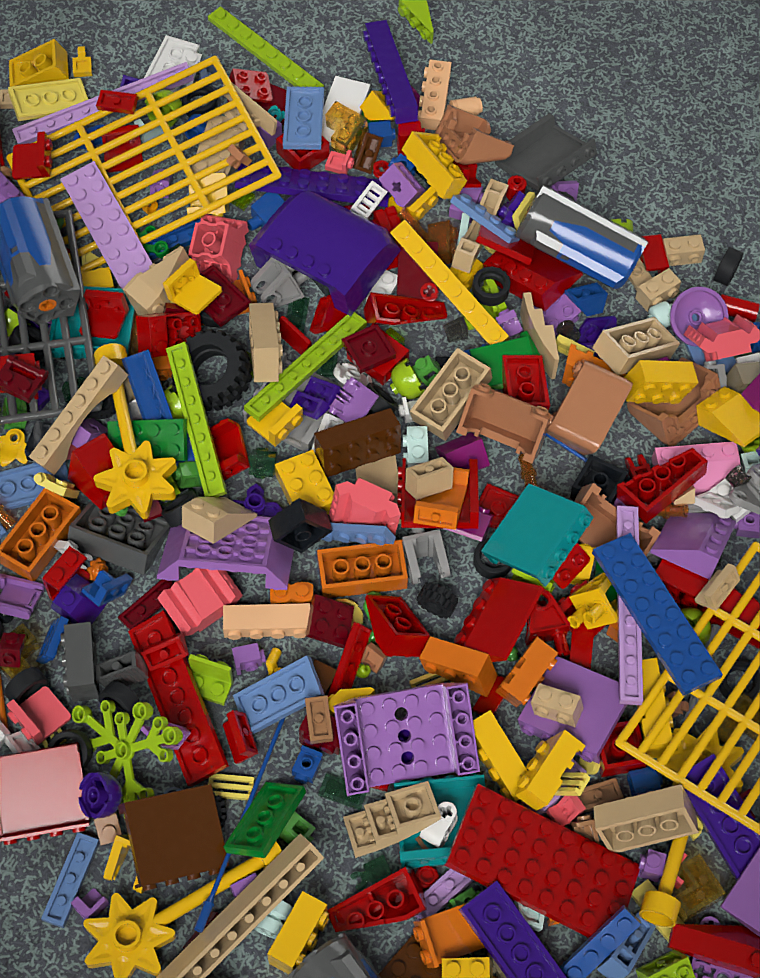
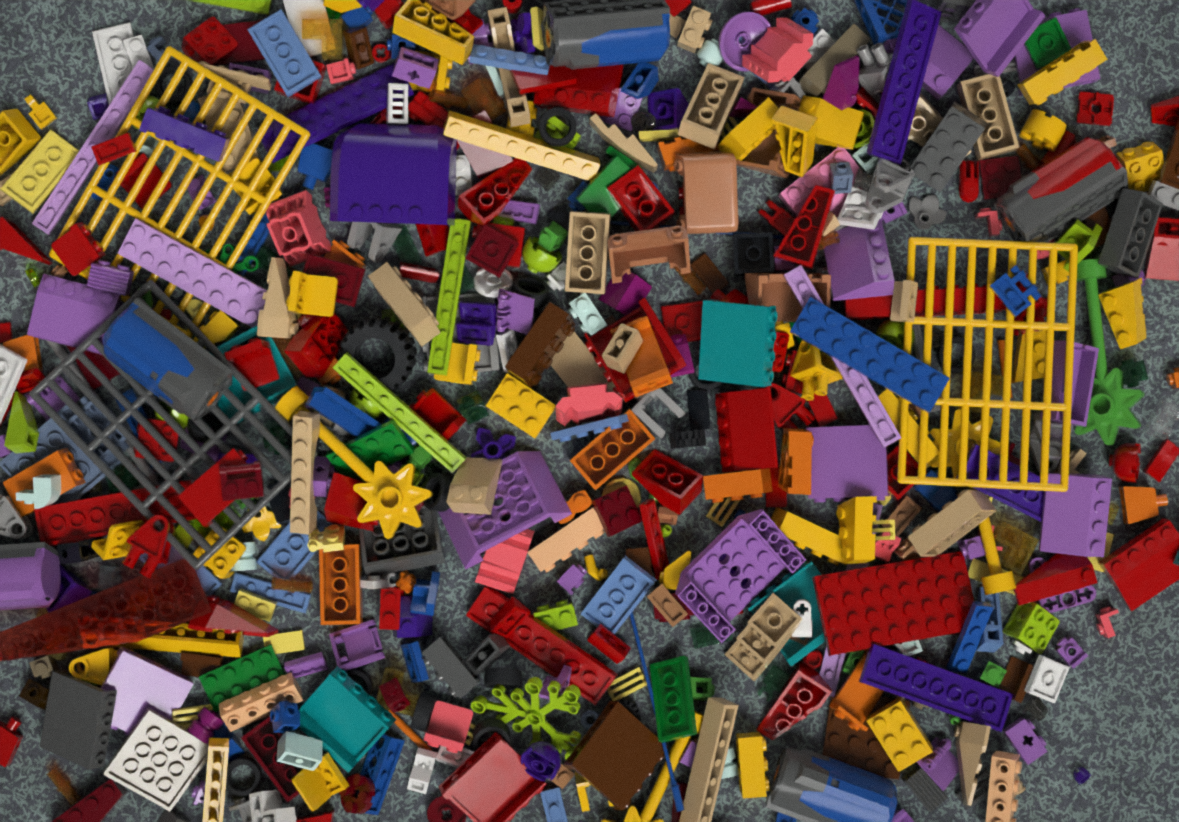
camera: 30 degrees left, 25 degrees up
(38, 187) = (110, 278): none -> medium lavender brick
(145, 606) = (463, 587): dark red tile -> none
(180, 115) = (184, 133): none -> dark purple wedge
(237, 157) = (262, 141): nougat tile -> none
(274, 110) = (256, 55): teal plate -> none
(300, 525) = (543, 449): black brick -> none
(307, 774) = (667, 629): blue brick -> none
(415, 340) = (521, 211): none -> medium lavender plate
(425, 288) = (503, 165): red bush -> none
(466, 586) = (698, 410): none -> black slope
(509, 322) = (589, 144): medium lavender bracket -> none
(548, 478) = (709, 273): none -> reddish brown tile
(557, 705) = (833, 475): tan brick -> none
(697, 407) = (797, 139): none -> yellow wedge
(719, 463) = (841, 177): none -> sand blue bracket
(725, 648) = (937, 337): none -> clear smoke wheel

